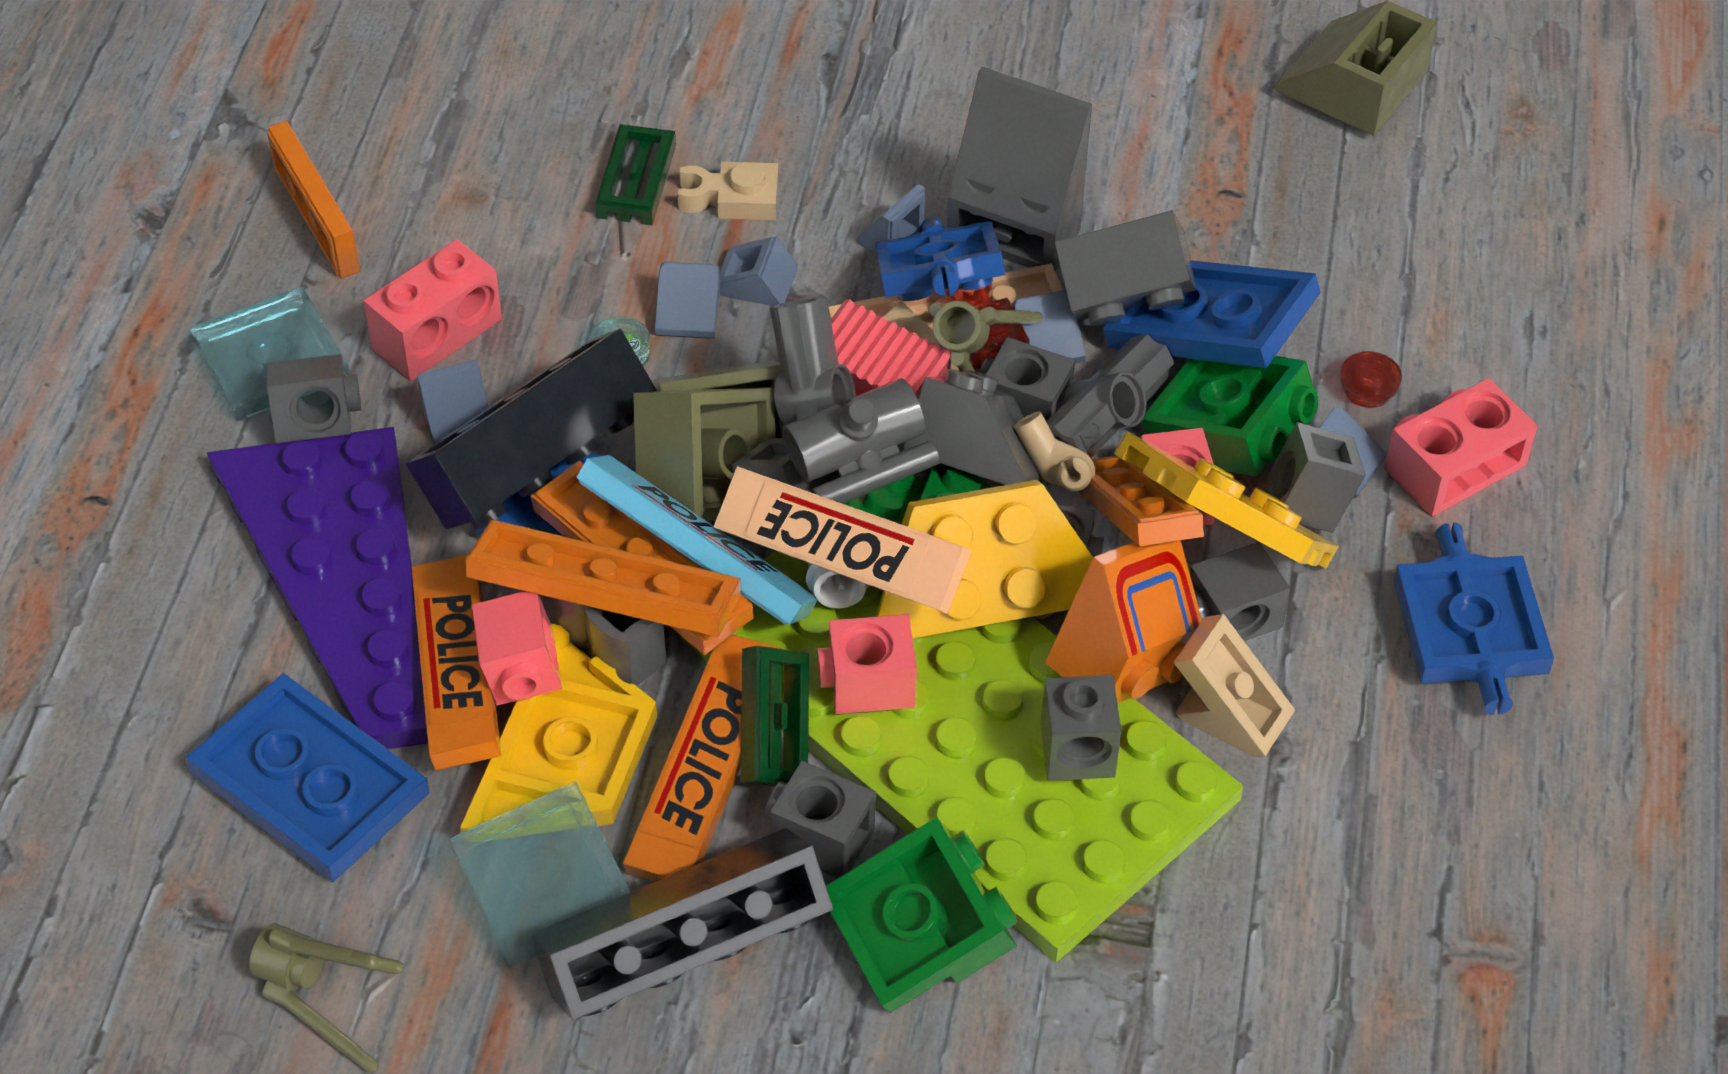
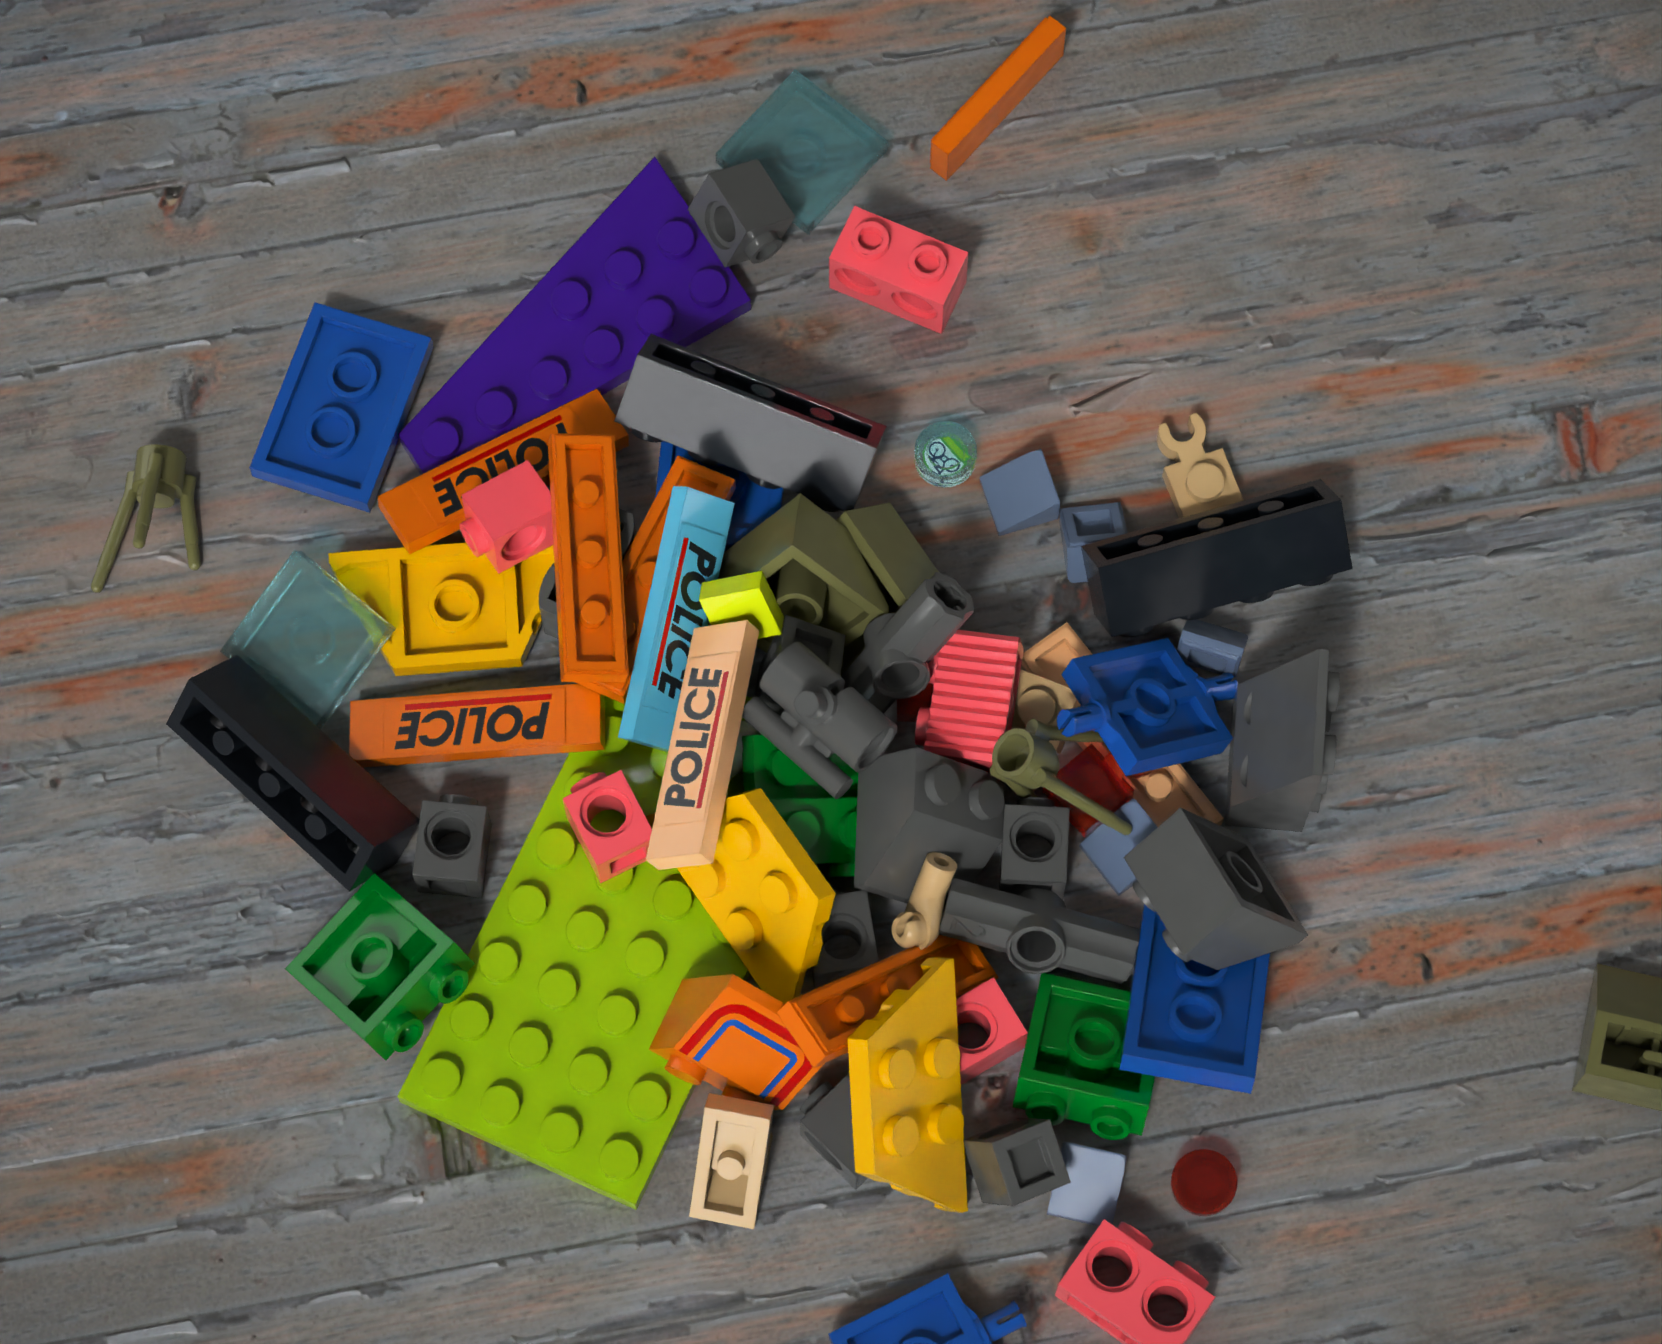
camera: 70 degrees right, 20 degrees up
(451, 397) = (799, 341): sand blue slope -> none
(629, 204) = (1182, 396): dark green tile -> none
(708, 478) = (741, 599): none -> neon yellow tile
(765, 714) = (557, 725): dark green tile -> none
(824, 184) = (1217, 558): none -> black brick
(1080, 727) = (604, 1033): dark grey brick -> none

